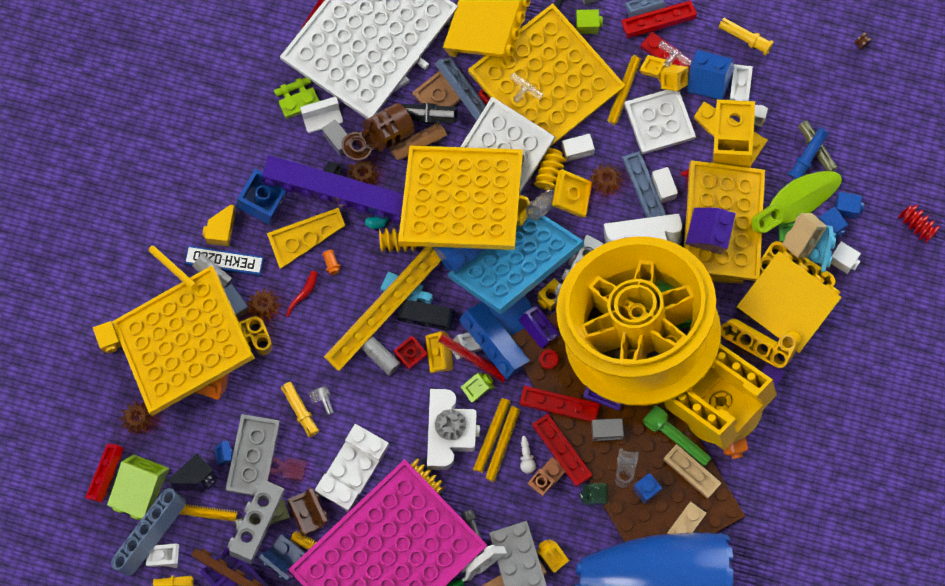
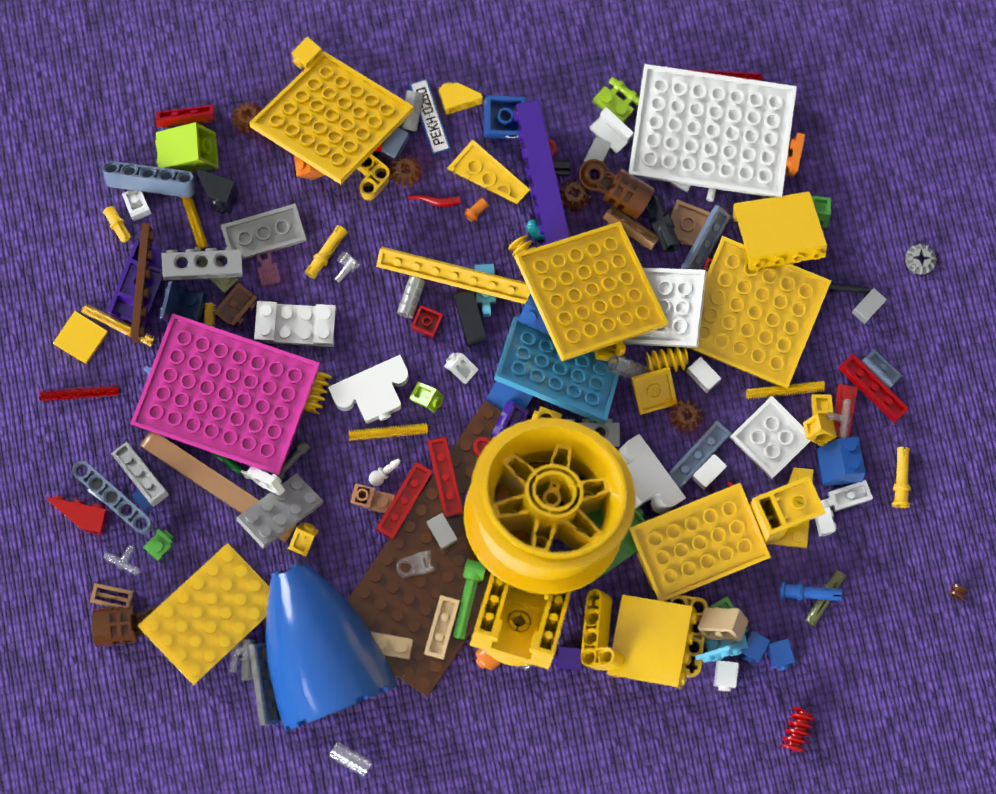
camera: 60 degrees right, 5 degrees up
(173, 268) = (396, 75): yellow bar -> none
(223, 453) = (252, 206): blue plate -> none
(439, 356) = (442, 347): yellow slope -> none
(446, 432) = (375, 397): light grey gear -> none
(470, 356) = (449, 366): red axle -> none
(494, 340) = (474, 390): blue brick -> none
(501, 446) = (393, 444): yellow axle -> none
(525, 86) = (733, 296): clear piece -> none
(588, 21) = (834, 323): lime brick -> none
(594, 494) = (376, 549): clear green bracket -> none
(647, 488) = (403, 593): blue brick -> none
(710, 229) = (680, 532): dark purple slope -> none
(797, 197) = (758, 602): lime plant -> none

